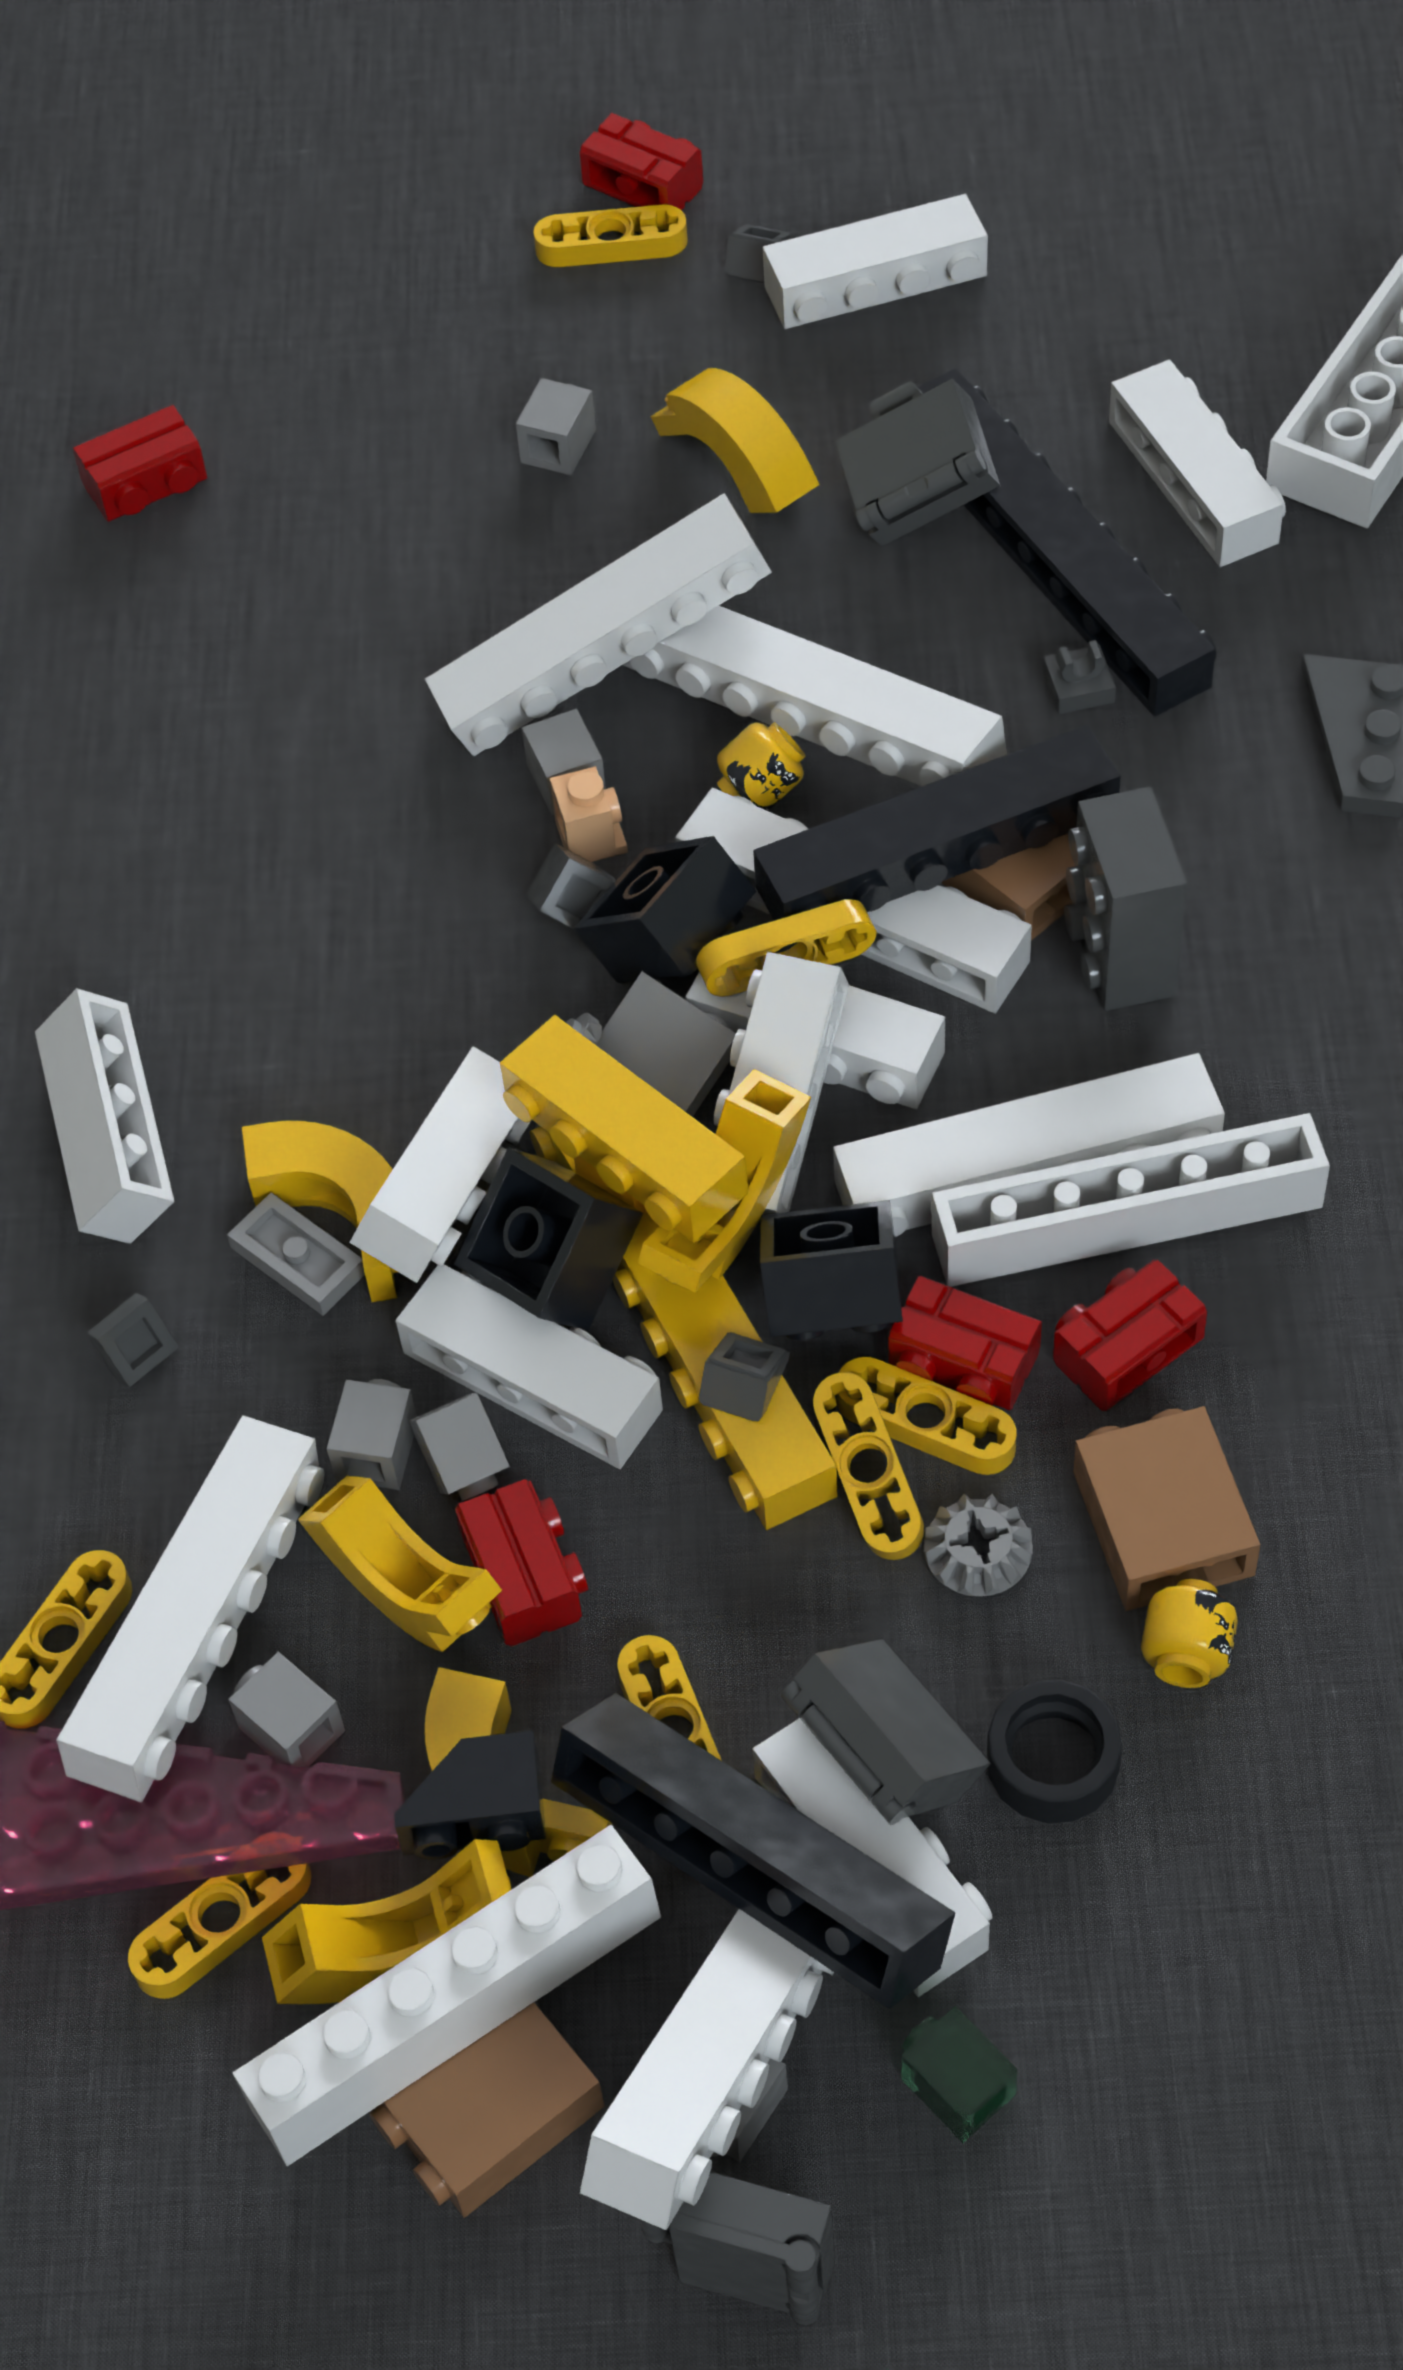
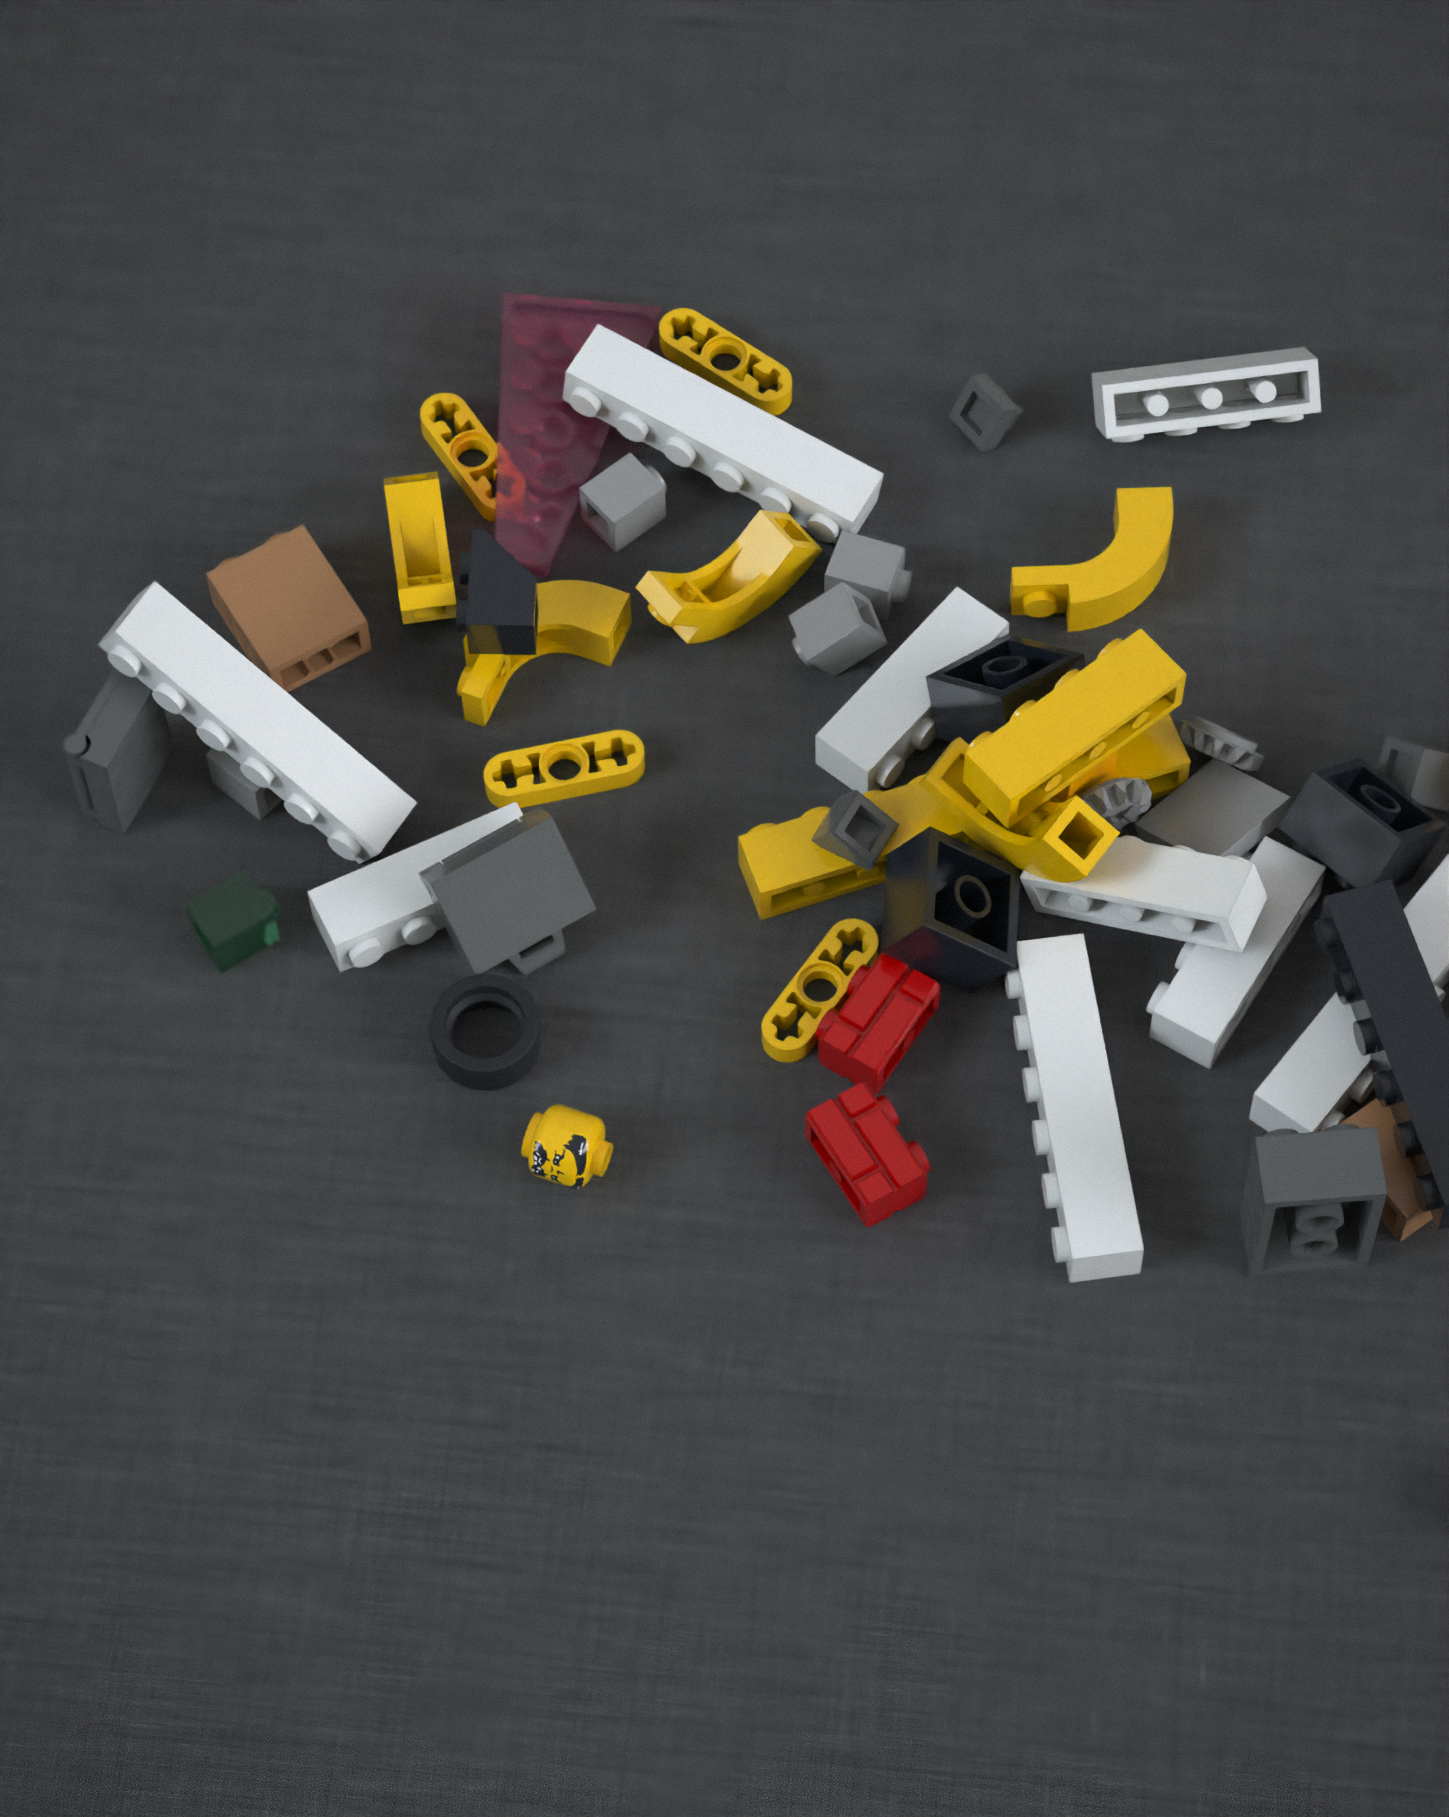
camera: 95 degrees right, 5 degrees up
(296, 1253) = (1056, 530): light grey plate -> none
(441, 1171) = (1088, 615): white brick -> none
(448, 1994) = (344, 568): white brick -> none
(516, 1543) = (727, 670): red brick -> none
(753, 1849) = (420, 777): black brick -> none
(823, 936) = (1294, 910): yellow beam -> none
(834, 1428) = (790, 942): yellow beam -> none
(960, 1566) = (671, 1030): light grey gear -> none
(1129, 1199) = (997, 1171): white brick -> none
(1165, 1505) = (693, 1151): medium nougat brick -> none

